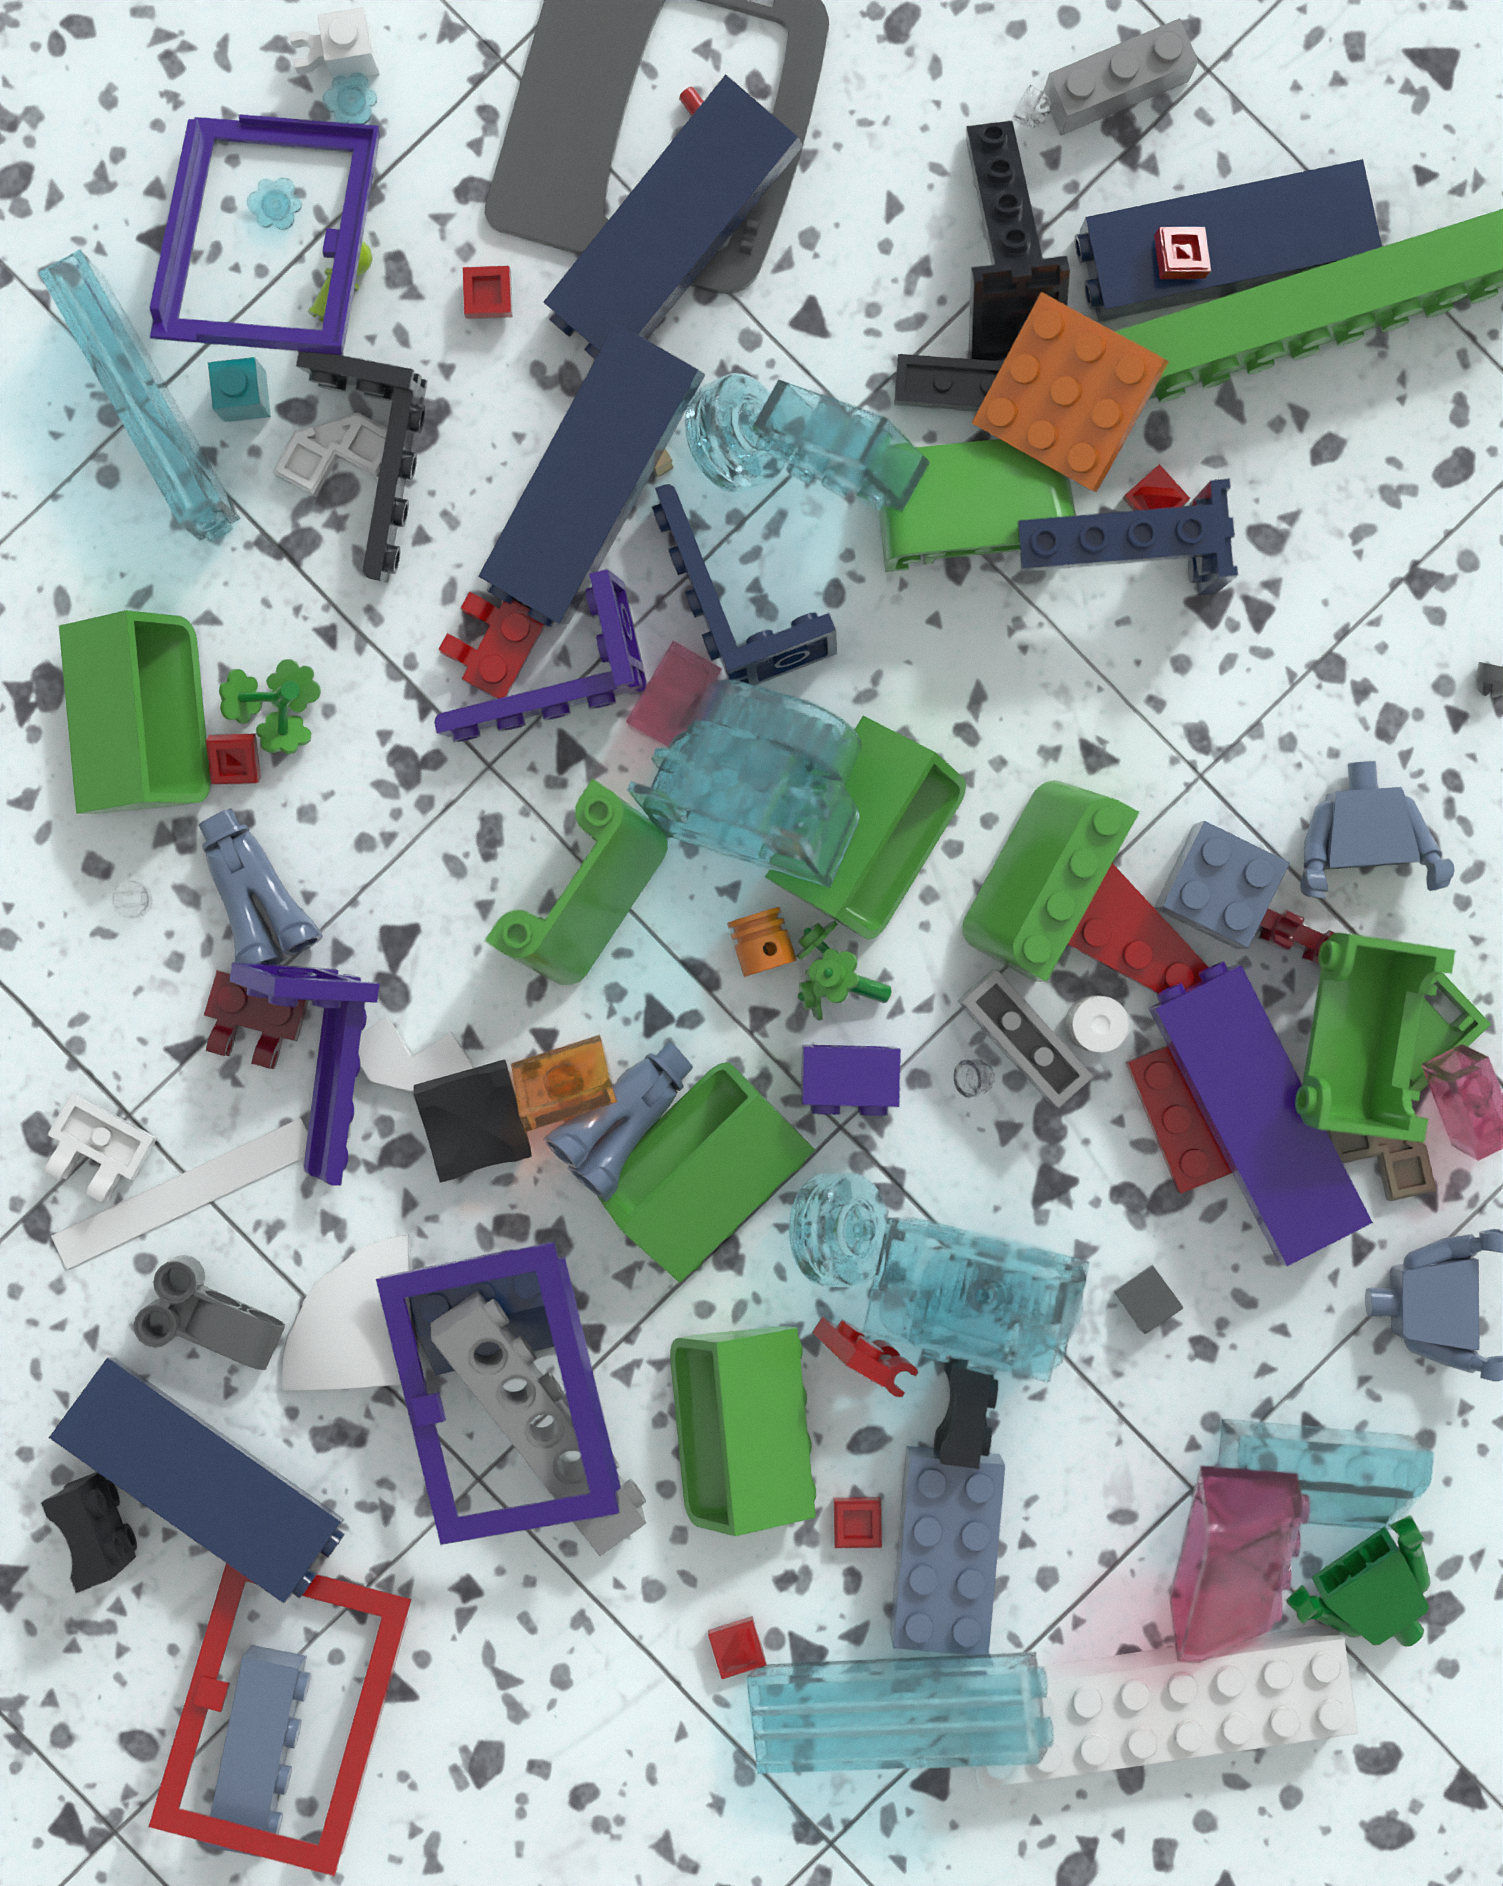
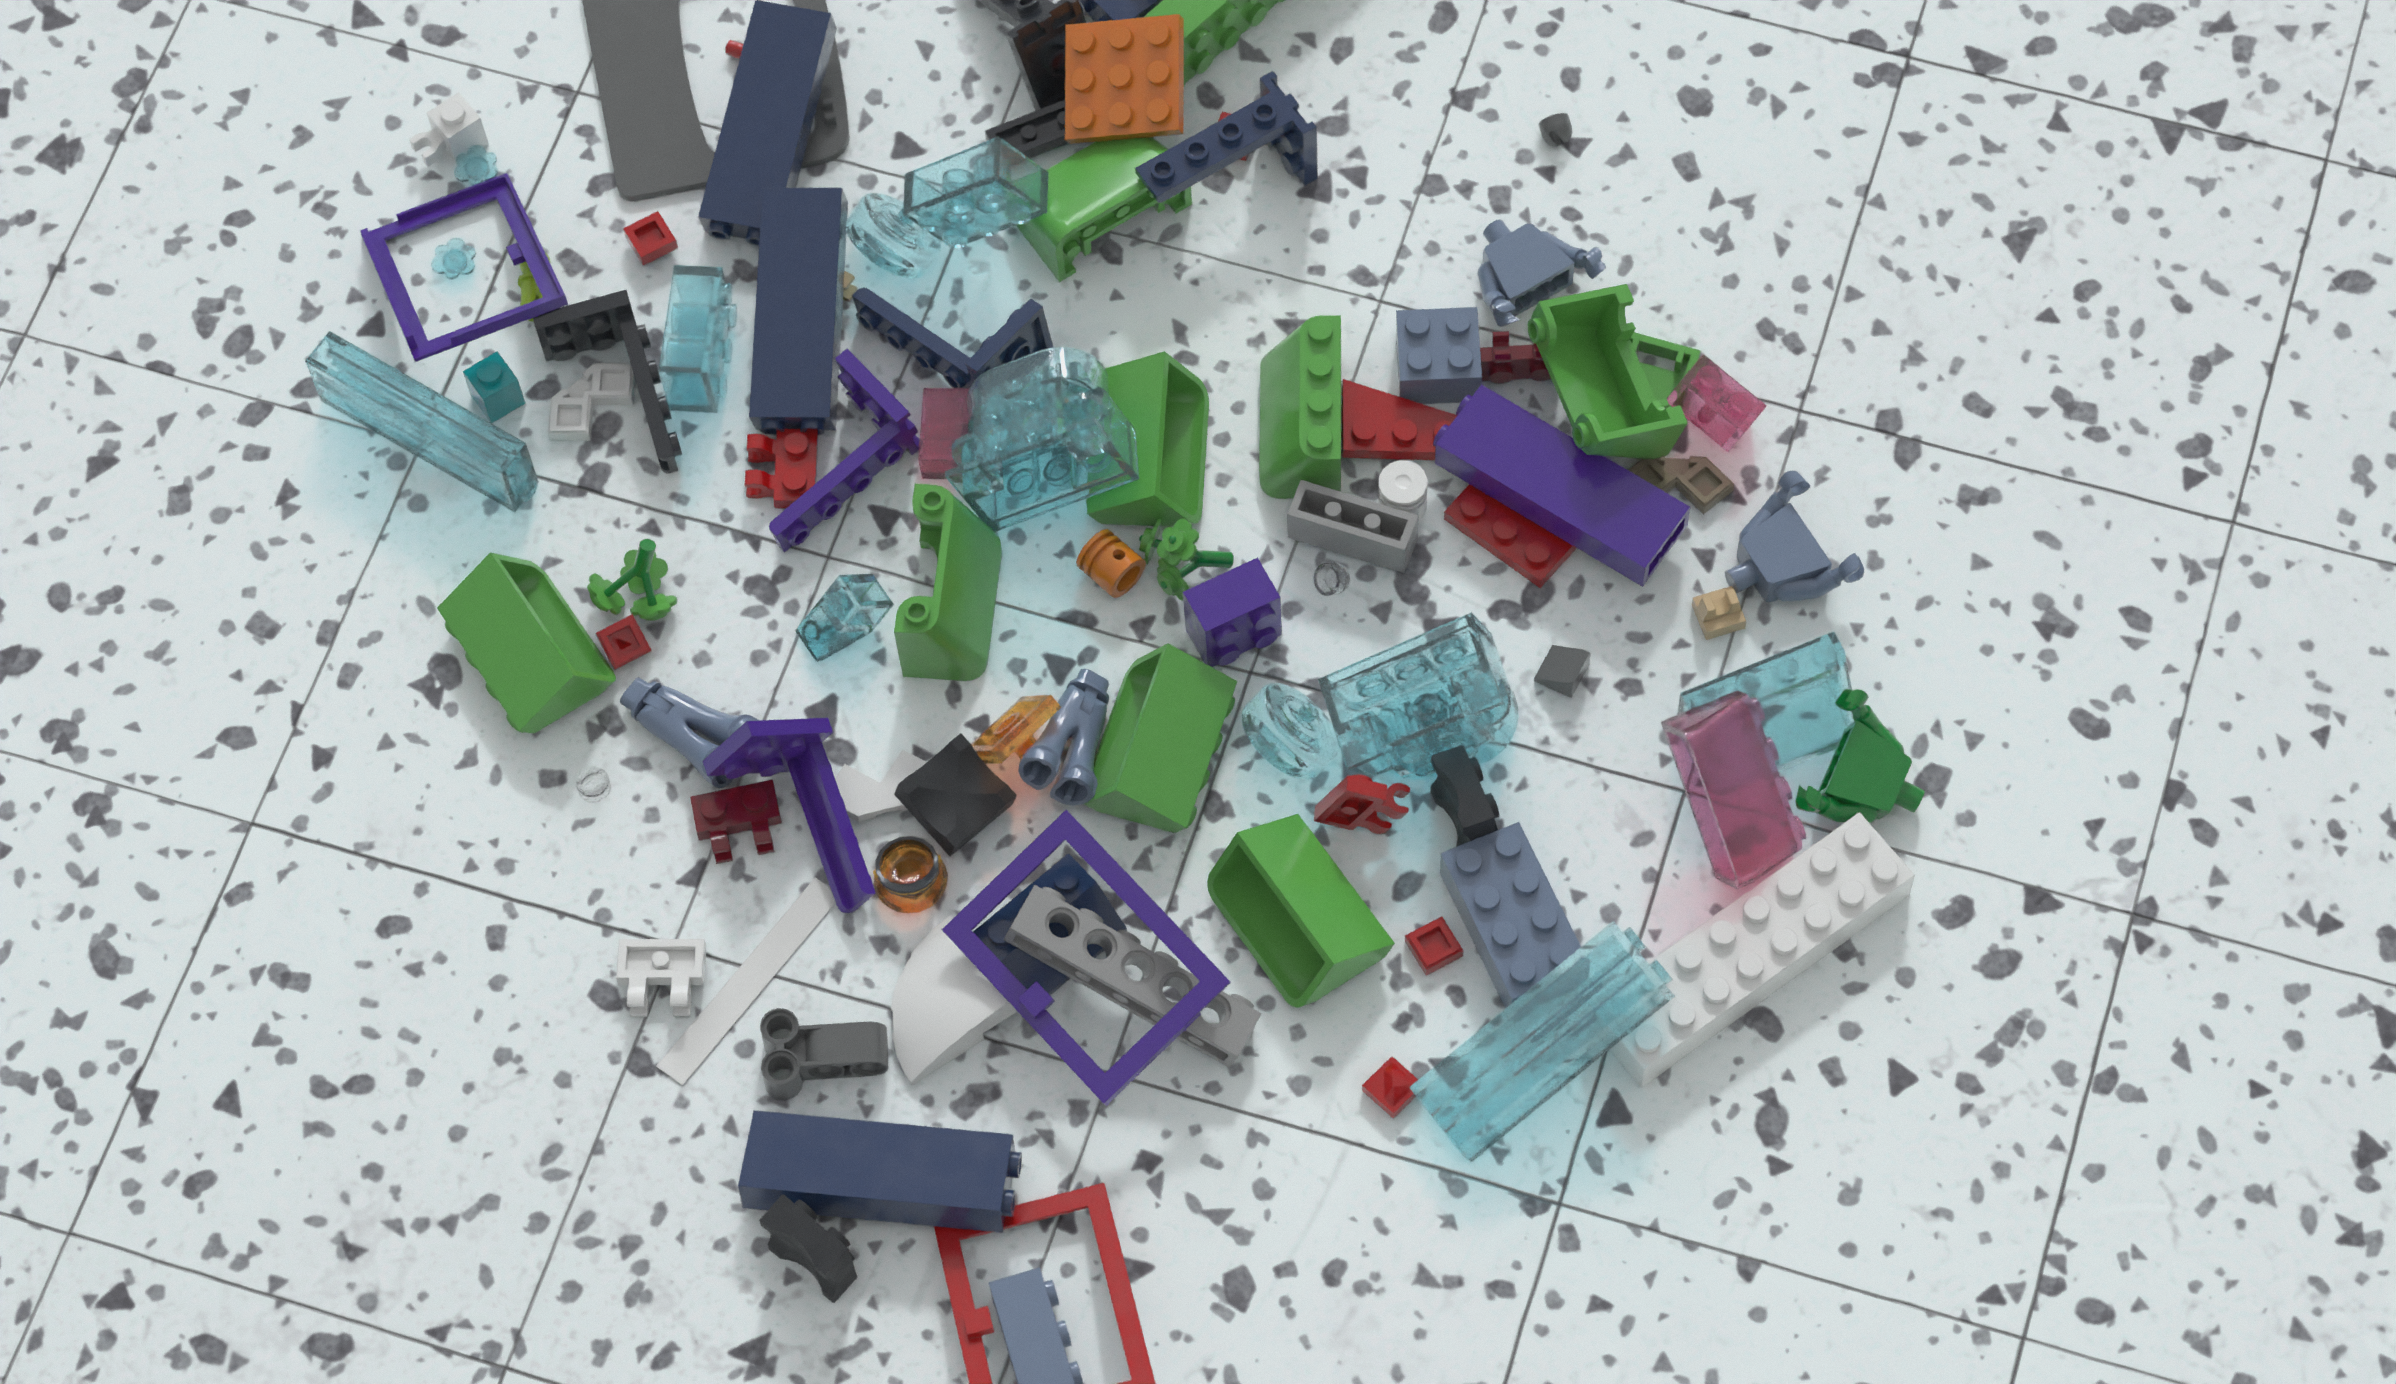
camera: 25 degrees left, 25 degrees down
(391, 1171) = (909, 875): none -> clear orange piece
(466, 852) = (844, 615): none -> clear light blue slope
(469, 452) = (697, 339): none -> clear light blue brick
(1337, 1321) = (1719, 612): none -> tan tile

